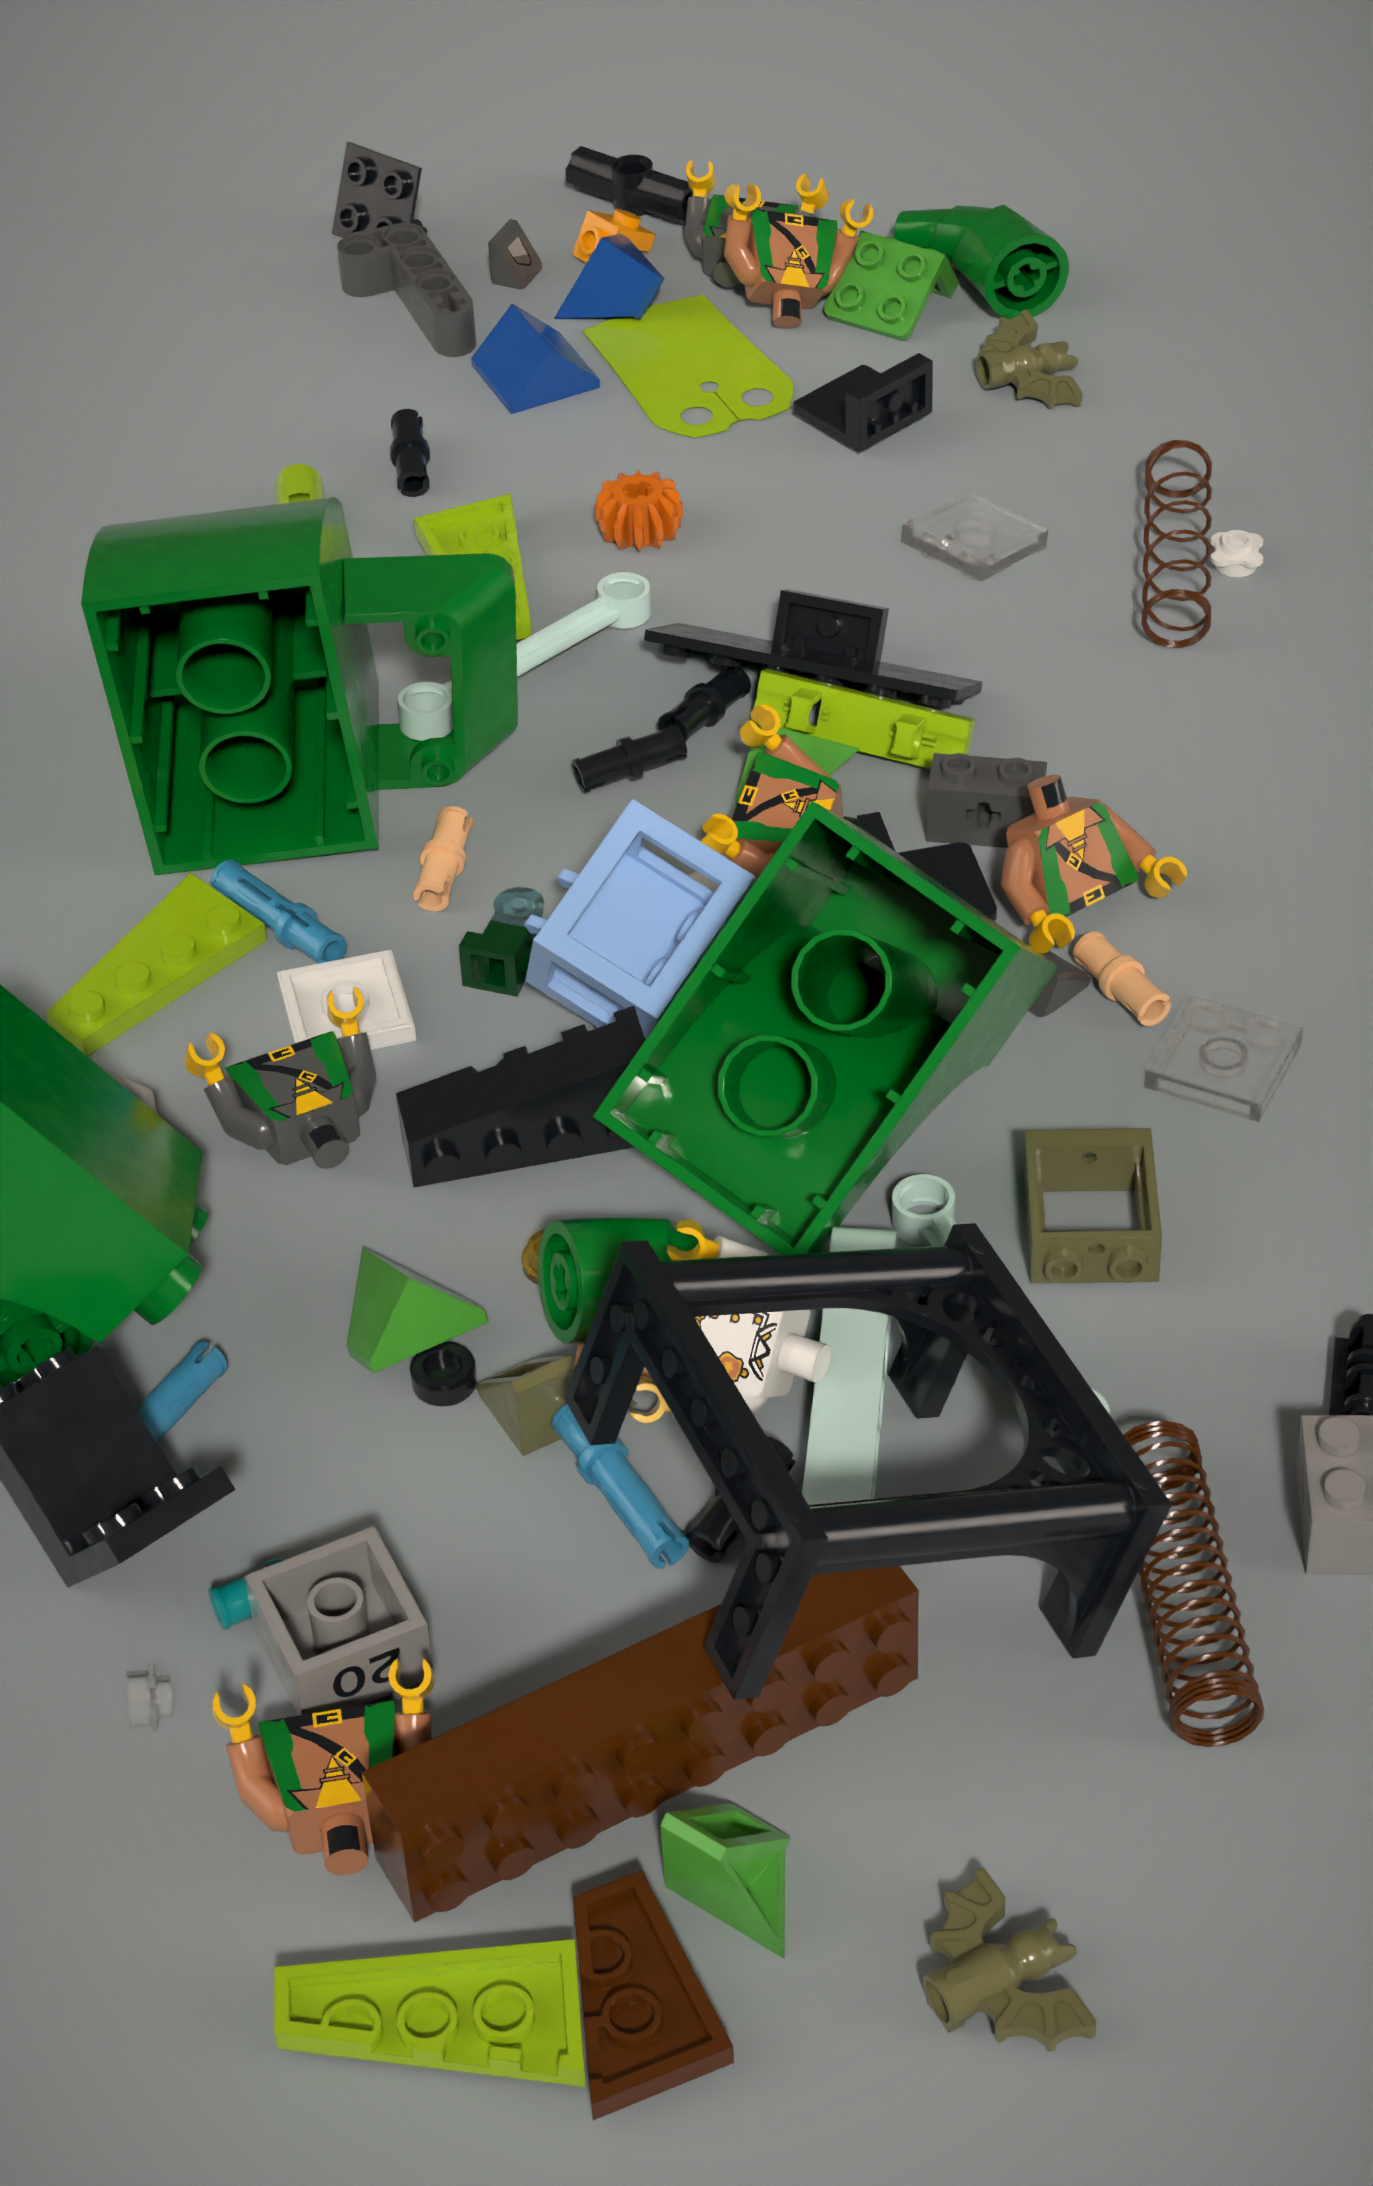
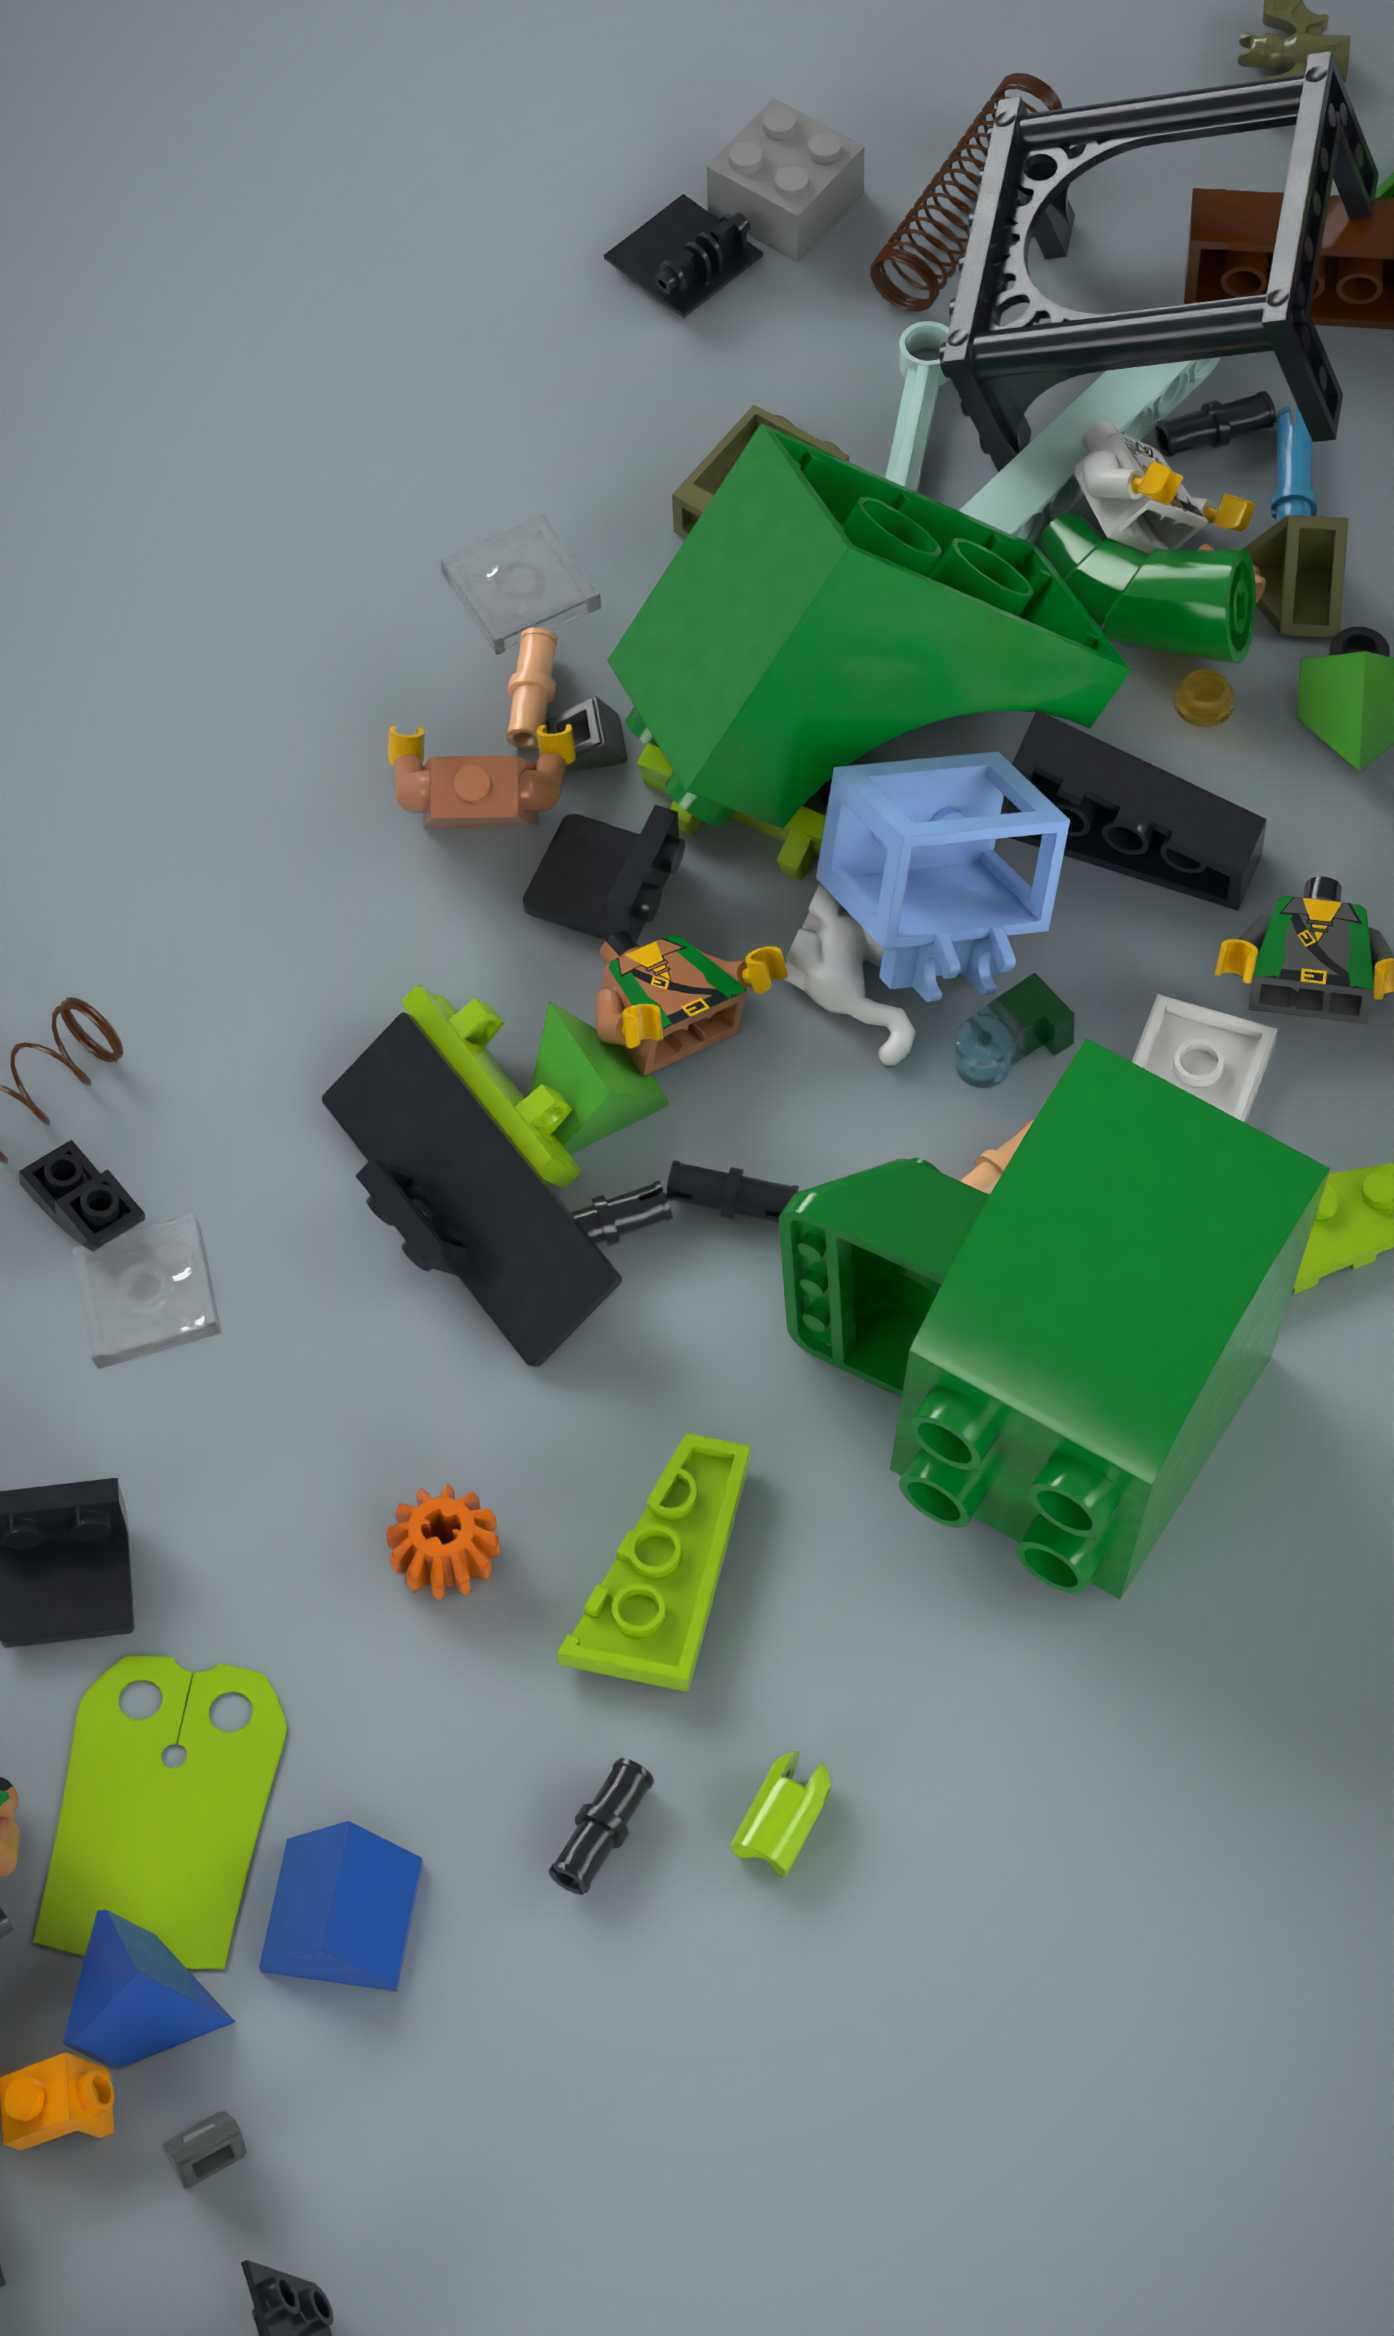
camera: 145 degrees left, 15 degrees up
(409, 263) = (369, 2141): dark grey beam -> none
(620, 603) = (716, 1398): light aqua piece -> none
(978, 797) = (471, 921): dark grey brick -> none
(1058, 551) = (79, 1198): none -> black slope

